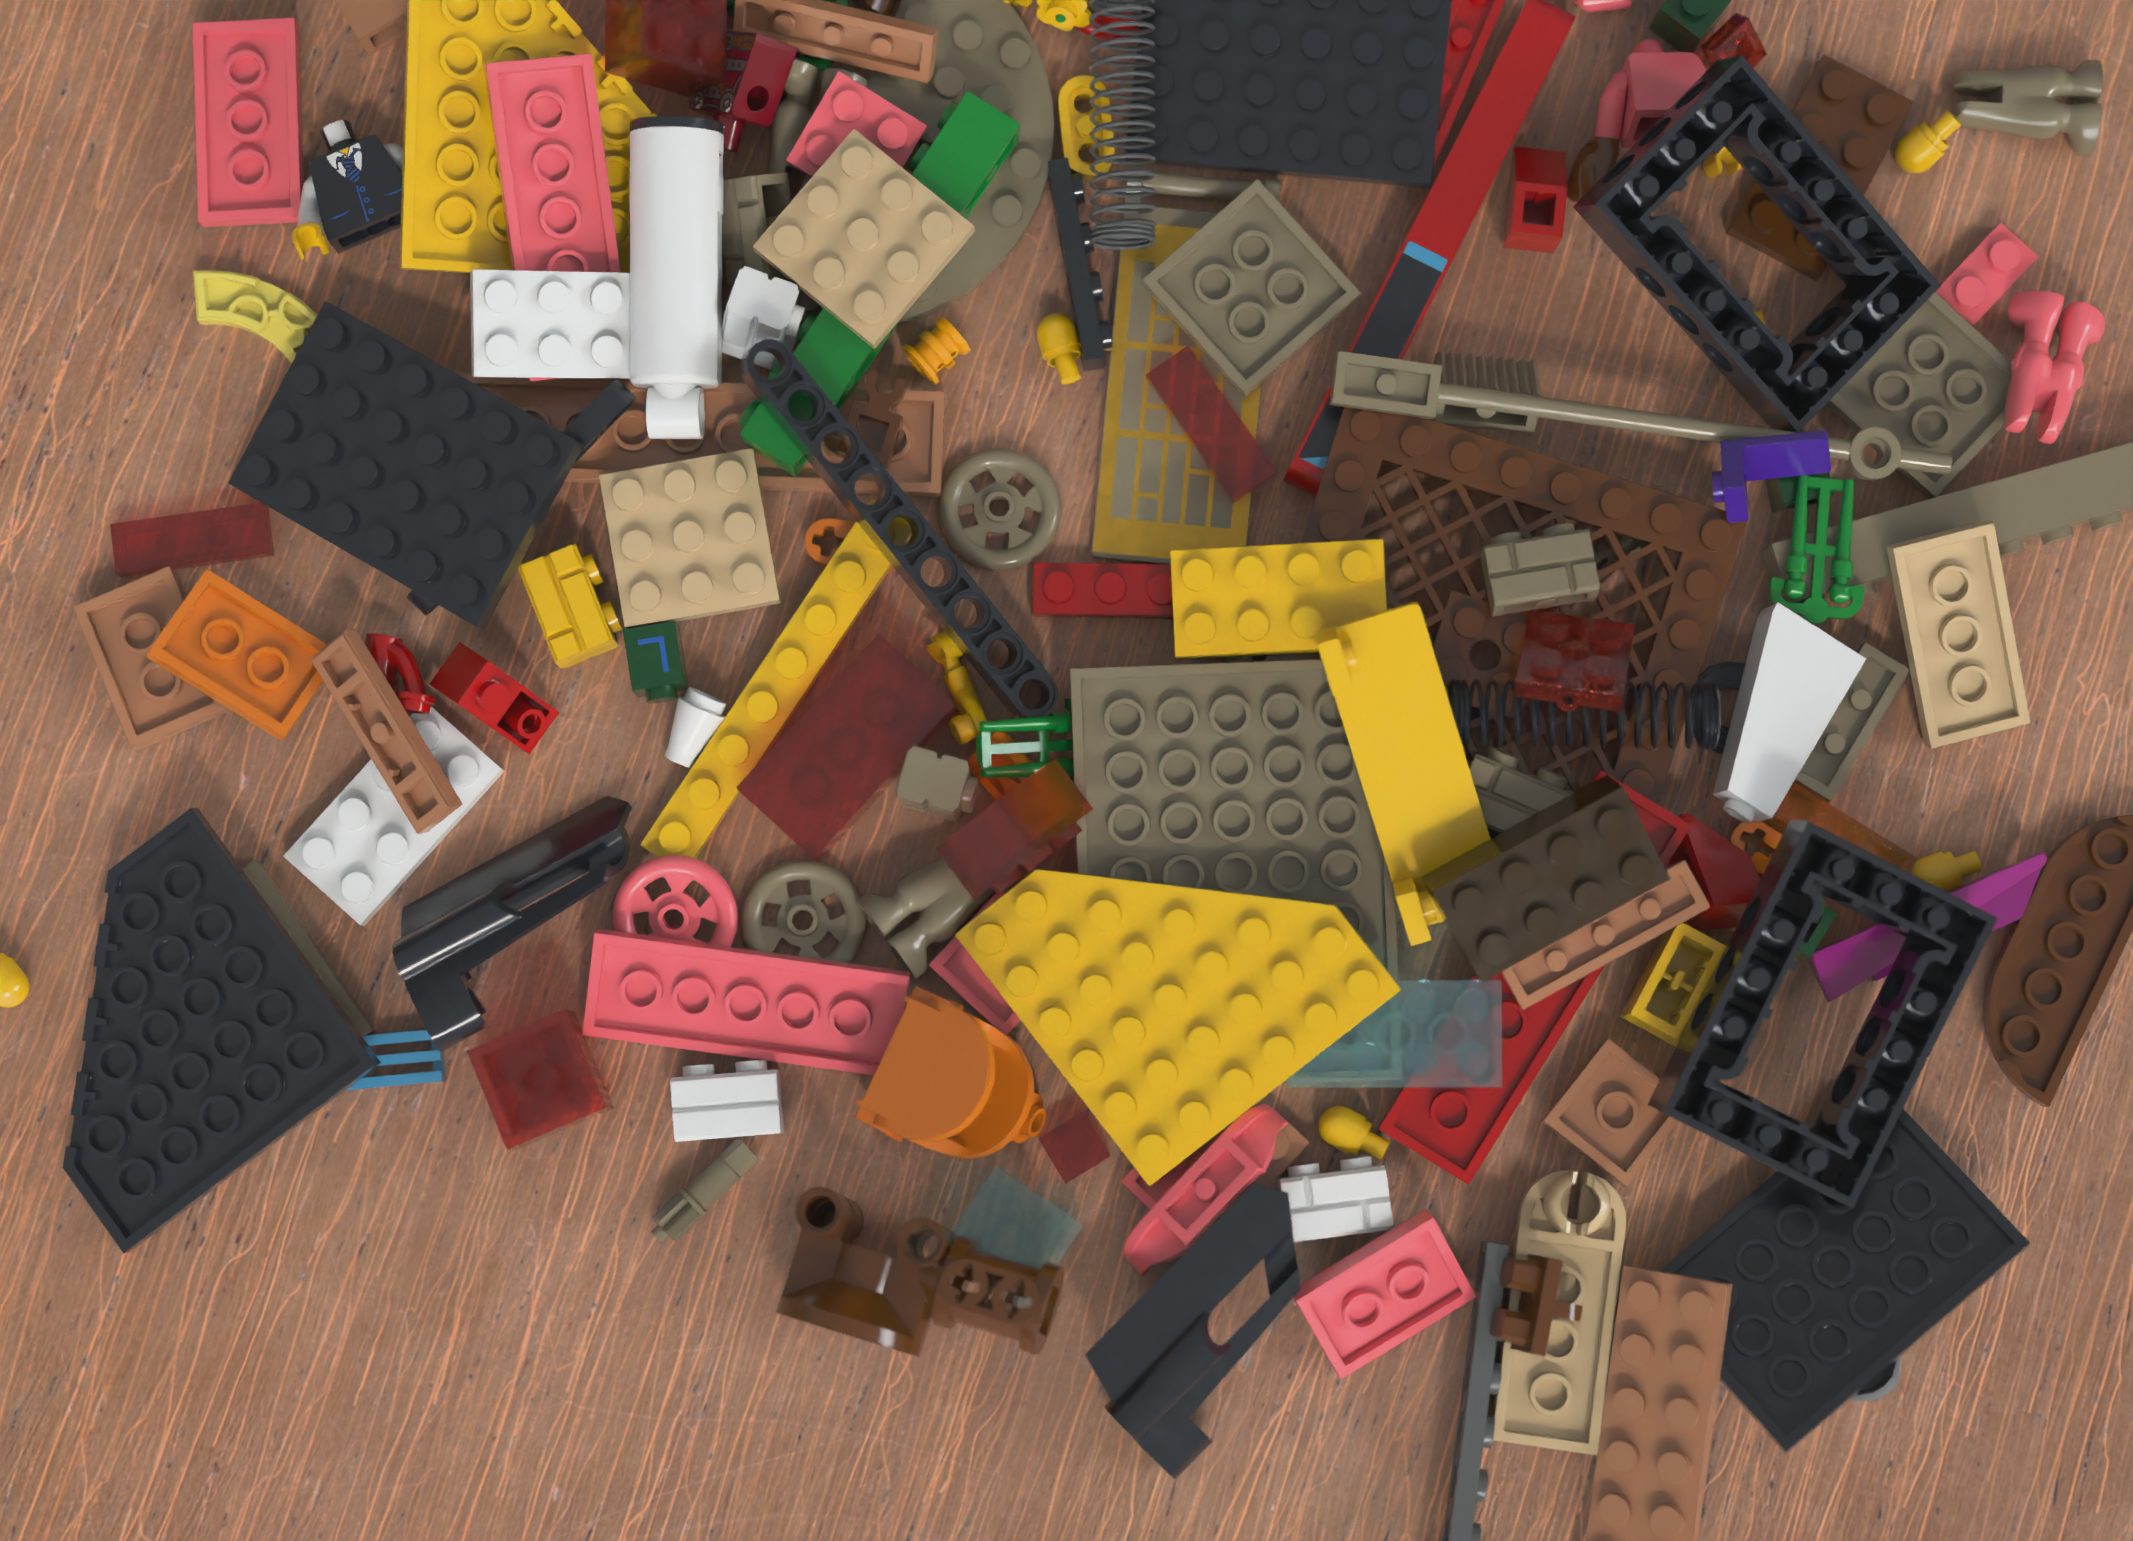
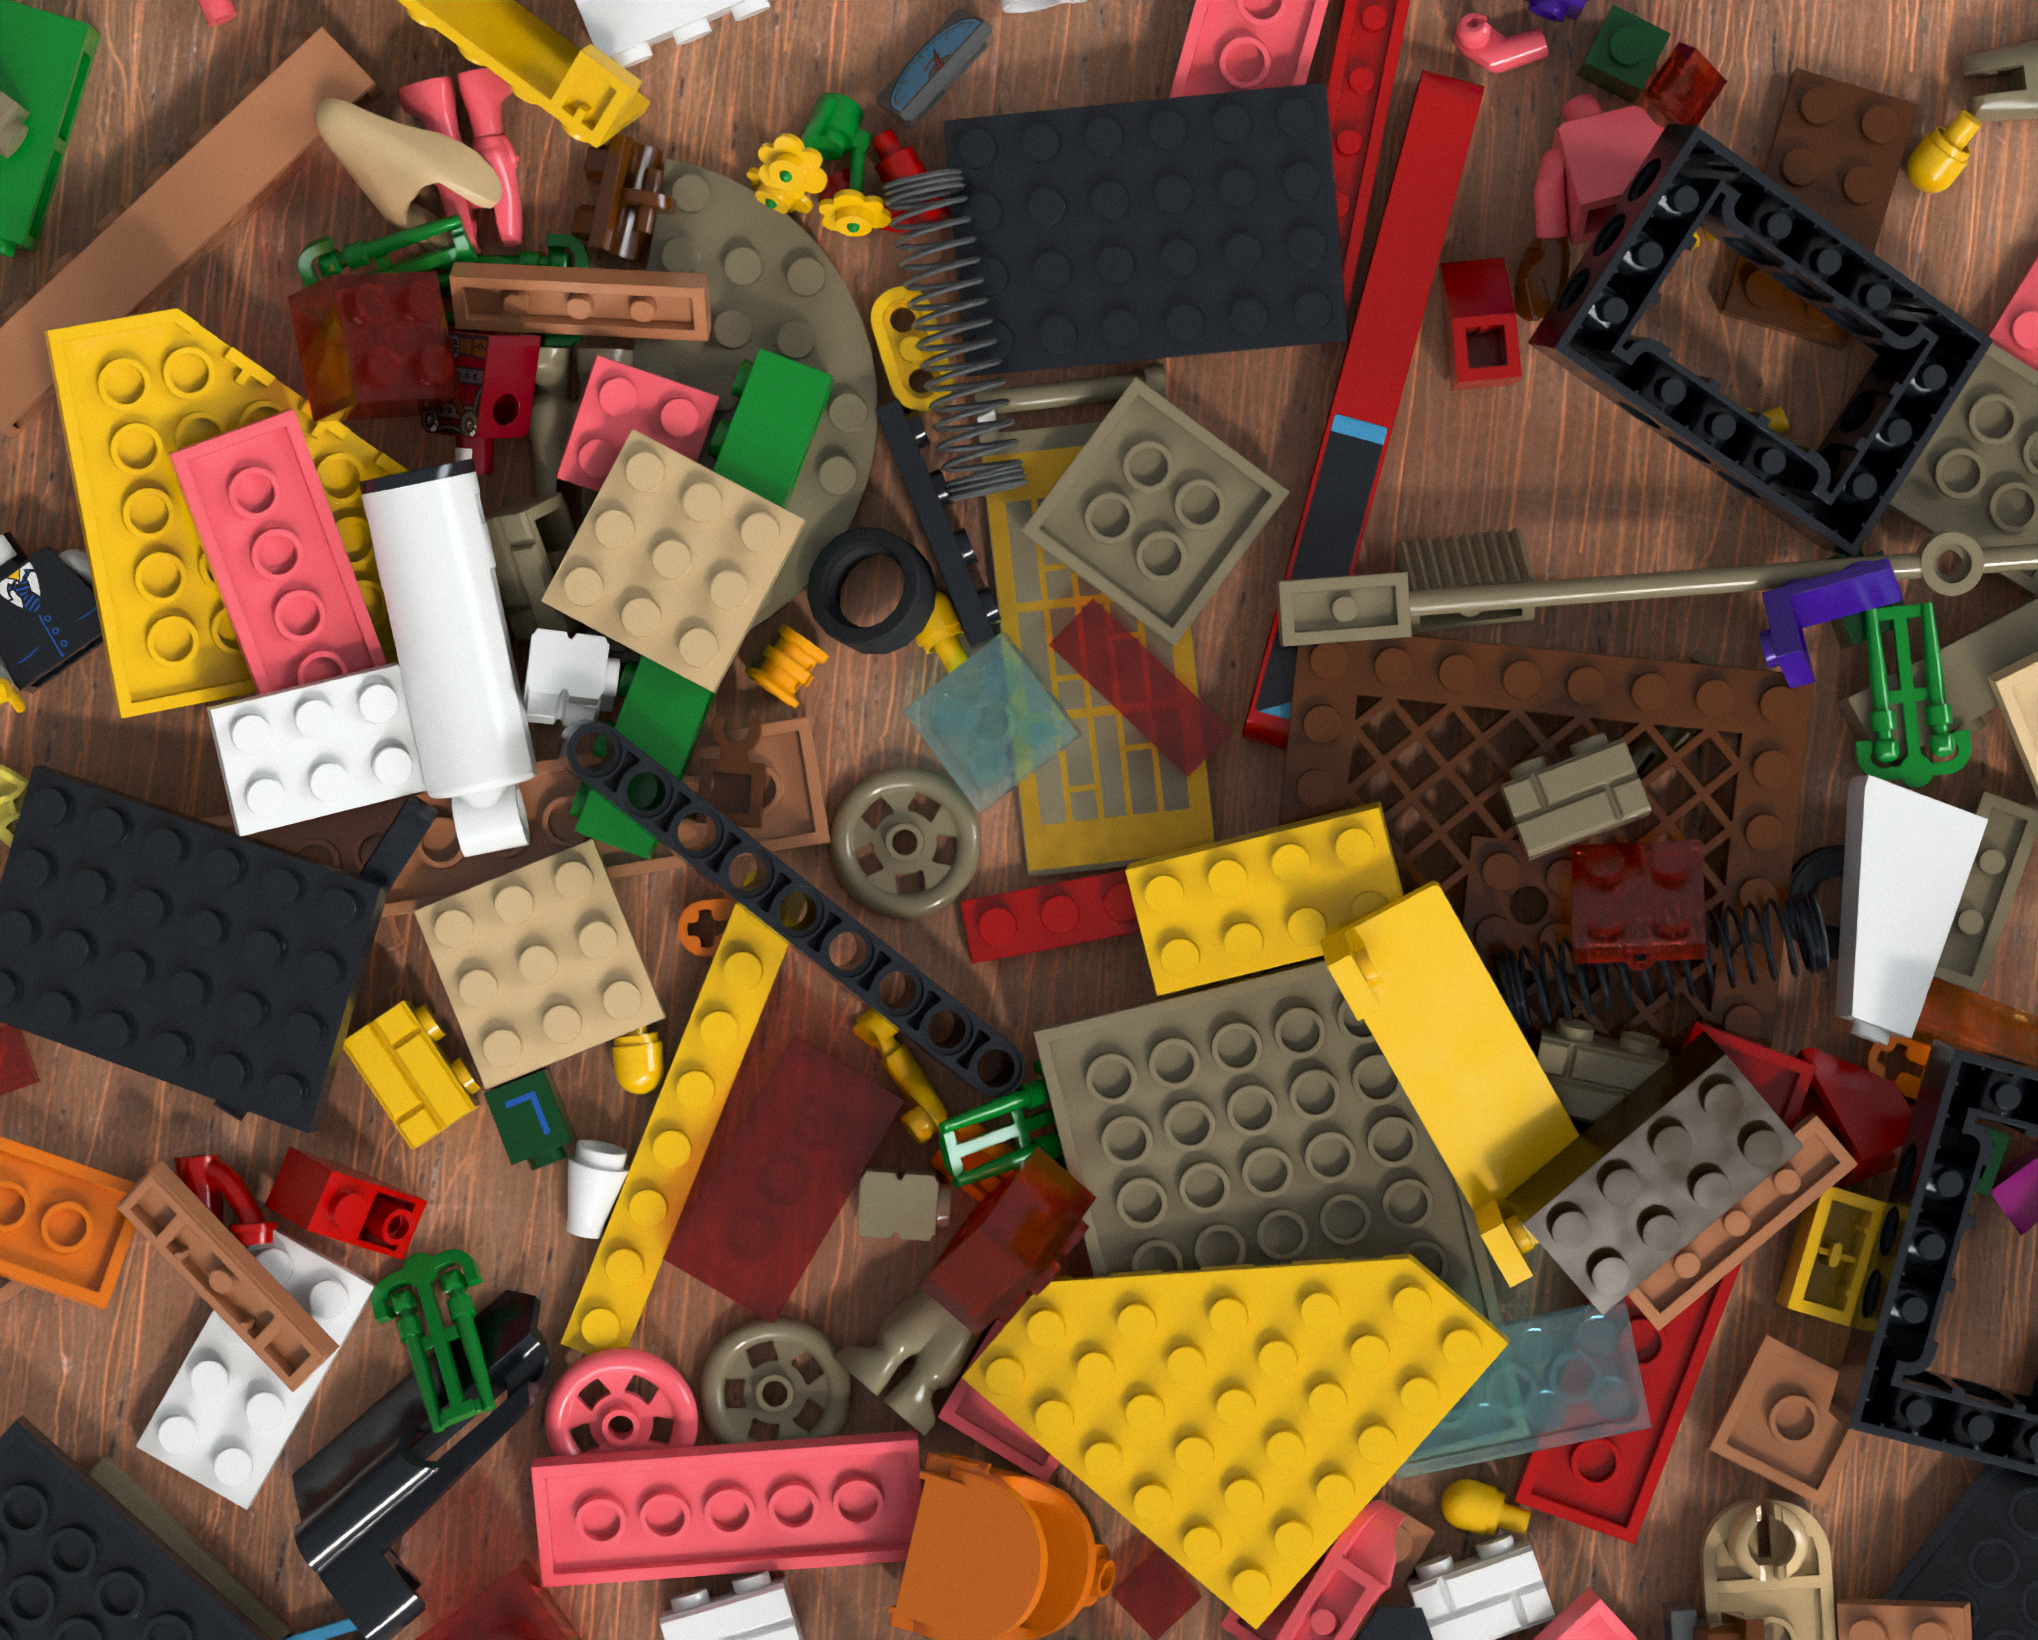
camera: 10 degrees left, 5 degrees up
(542, 766) = (422, 1272): none -> green piece
(751, 634) = (639, 1060): none -> yellow cylinder
(998, 274) = (831, 571): none -> black tyre
(1088, 426) = (992, 722): none -> clear light blue plate

